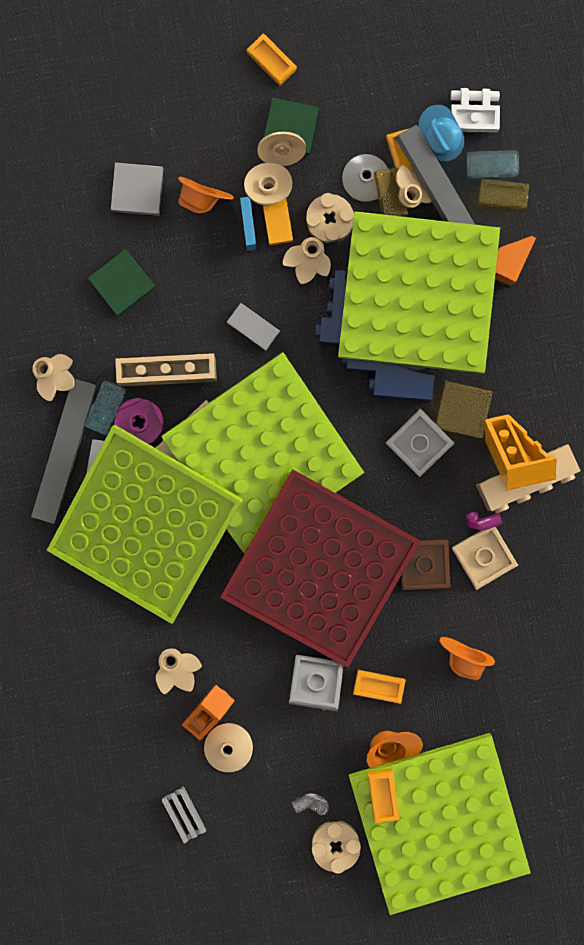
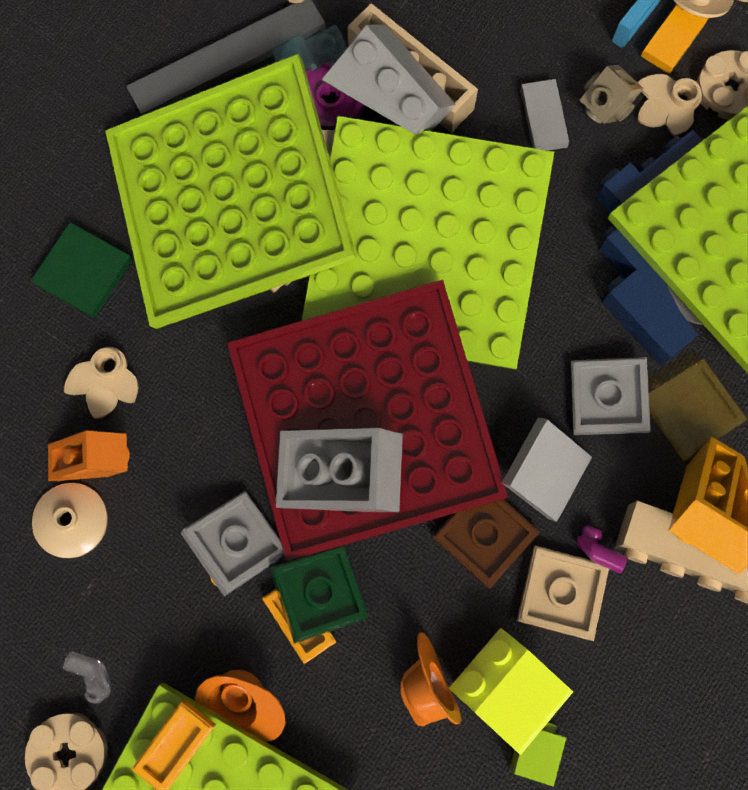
camera: 45 degrees right, 10 degrees down
(108, 629) = (81, 270): none -> dark green tile
(170, 394) = (389, 81): none -> light grey wedge
(277, 287) = (610, 95): none -> dark tan brick
(334, 606) = (340, 470): none -> light grey slope
(377, 667) = (318, 593): none -> dark green tile
(425, 509) = (547, 469): none -> light grey tile
(503, 626) = (511, 690): none -> neon yellow slope
(539, 638) = (541, 757): none -> lime brick

